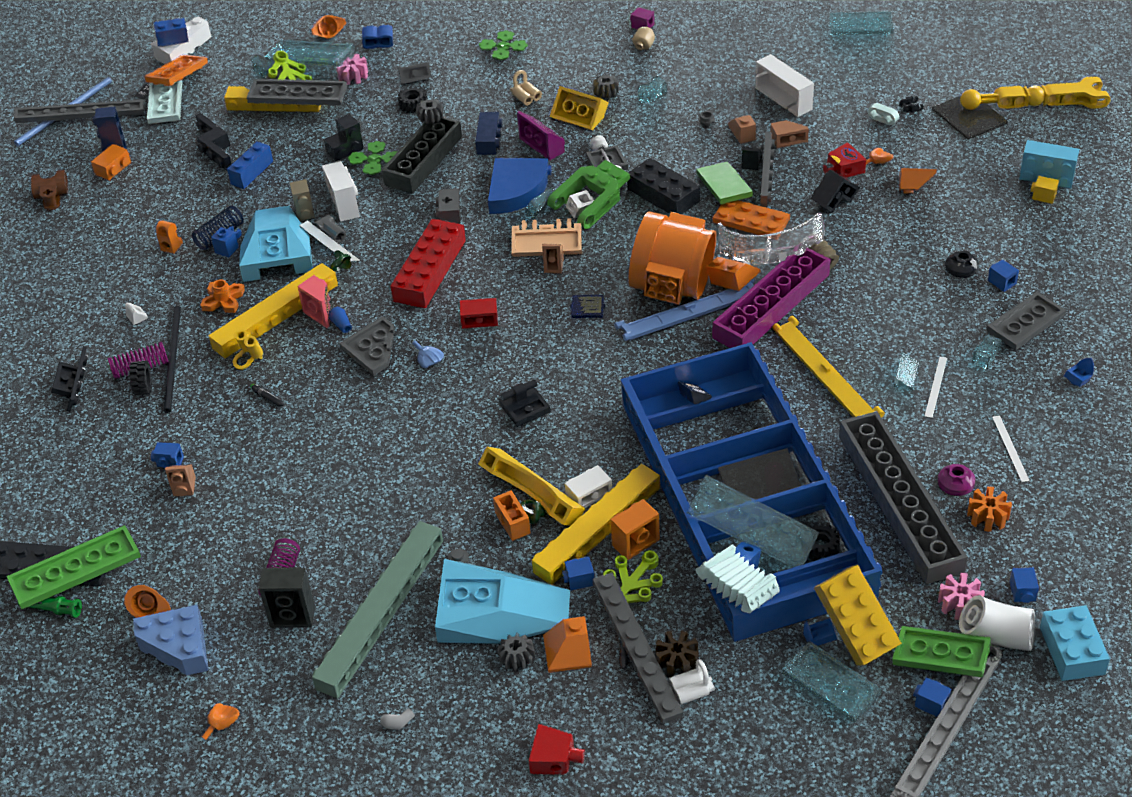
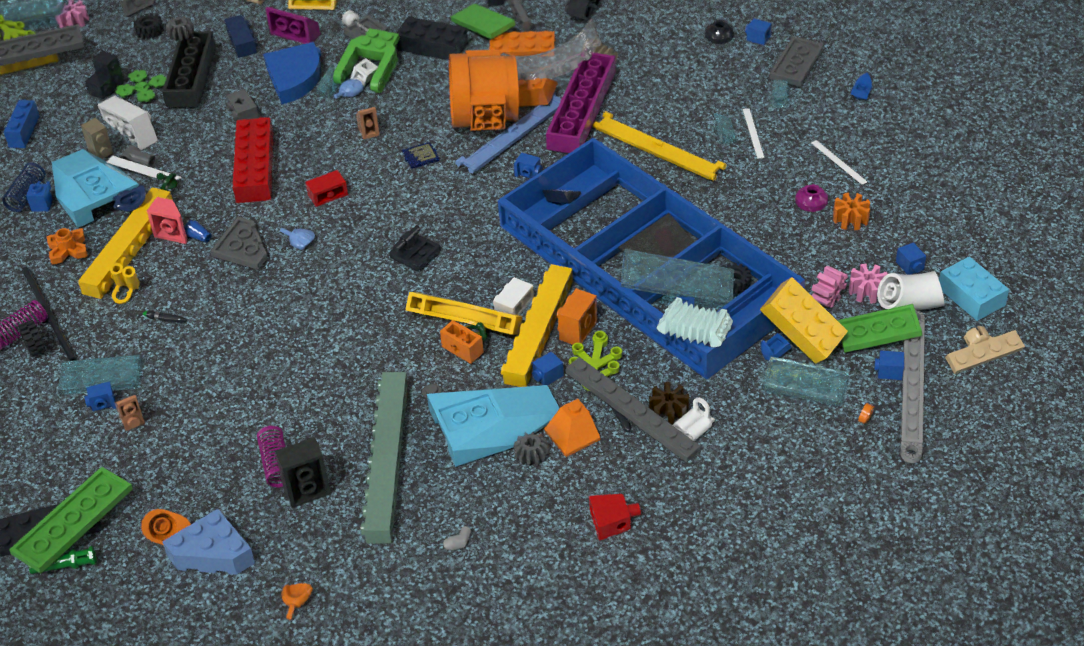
camera: 25 degrees left, 0 degrees up
(193, 435) = (120, 371): none -> clear light blue plate
(294, 269) = (130, 199): none -> dark blue hat
(530, 241) = (344, 114): light nougat hinge -> none
(561, 213) = (350, 88): none -> medium blue piece
(680, 349) = (527, 165): none -> blue brick
(875, 742) = (866, 413): none -> orange tile
(902, 498) = (778, 221): dark grey brick -> none
(912, 586) = (829, 286): none -> bright pink gear
(1047, 716) = (983, 349): none -> tan plate

